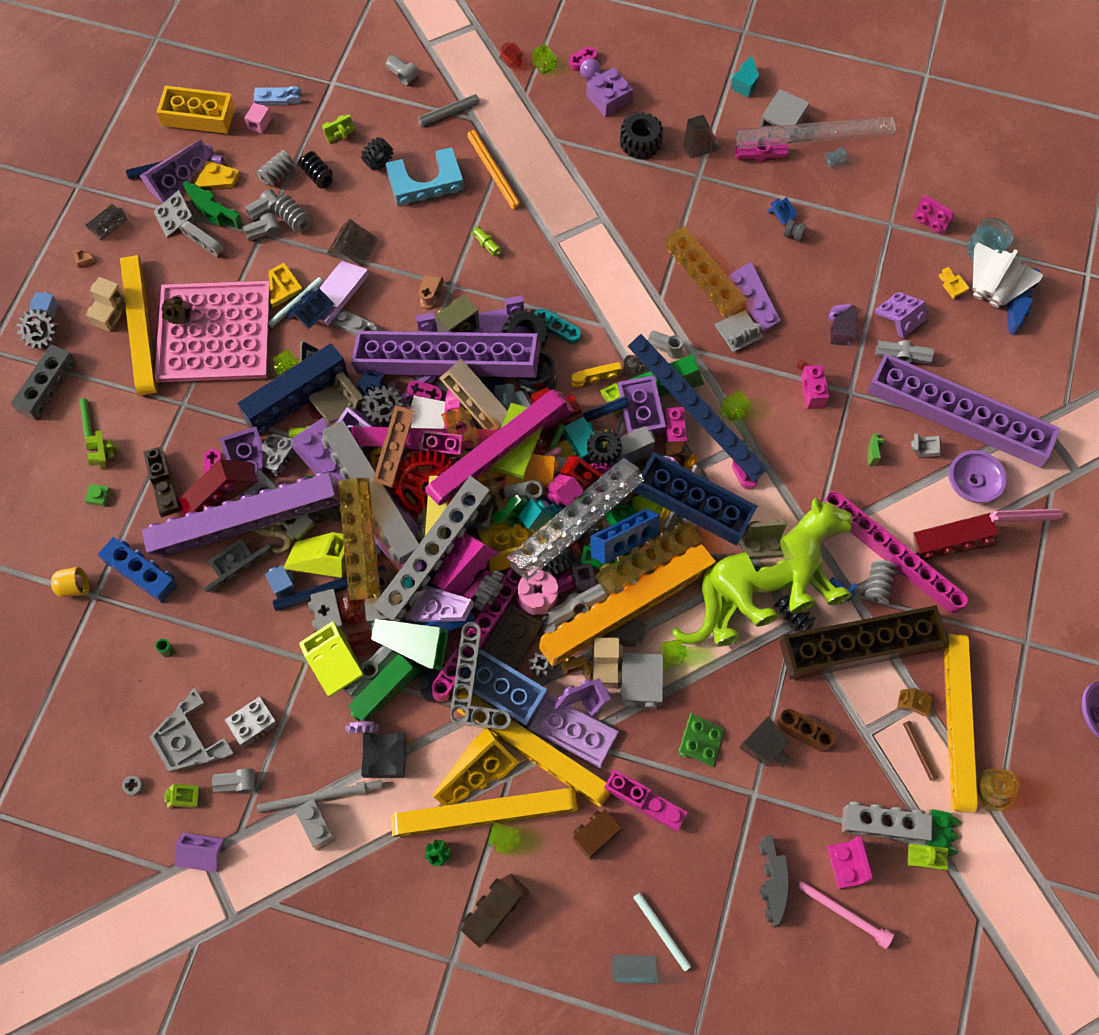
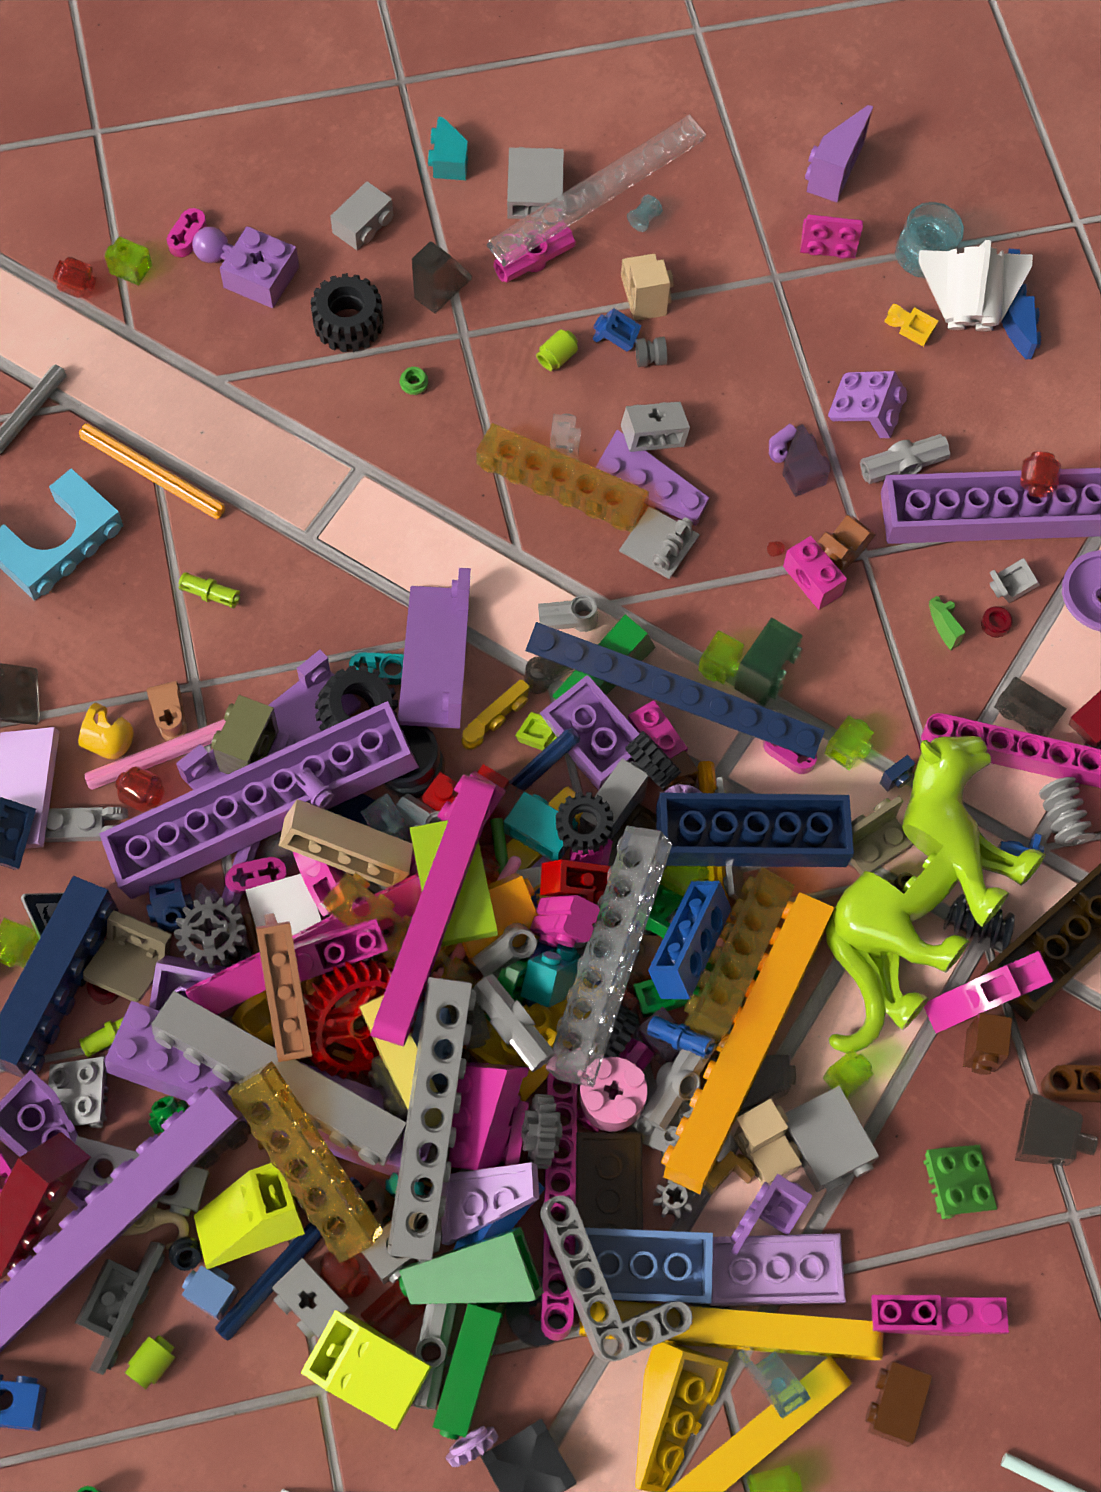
camera: 30 degrees left, 0 degrees up
(232, 598) = (150, 1361): none -> lime brick
(277, 561) = (188, 1260): none -> black plate
(391, 290) = (103, 738): none -> yellow helmet
(392, 320) = (139, 789): none -> clear red head
(398, 308) = (153, 755): none -> bright pink axle
(475, 362) = (314, 788): none -> medium lavender pin
(502, 524) = (512, 1023): none -> light grey piece
(535, 784) = (776, 1383): none -> clear light blue panel
(581, 327) = (435, 654): none -> medium lavender bracket
(589, 581) = (681, 1037): none -> blue pin
(656, 182) = (413, 374): none -> bright green plate
(661, 434) = (652, 760): none -> black tyre
(679, 90) = (362, 216): none -> light grey brick
(720, 251) = (565, 435): none -> clear brick
(743, 206) = (557, 350): none -> lime brick
(756, 417) = (765, 663): none -> clear green brick
(758, 676) = (987, 1043): none -> reddish brown brick
(772, 269) = (655, 426): none -> light grey brick
(774, 649) = (988, 992): none -> dark pink slope
(780, 484) = (850, 742): none -> clear neon green brick
(796, 513) = (898, 774): none -> dark blue plate
(812, 194) = (646, 286): none -> tan brick
(843, 379) = (846, 542): none -> dark orange brick
(894, 517) = (1029, 708): none -> clear smoke bracket
(904, 463) = (996, 621): none -> dark red tile
(964, 173) = (836, 156): none -> medium lavender slope
(974, 393) = (1040, 474): none -> clear red head

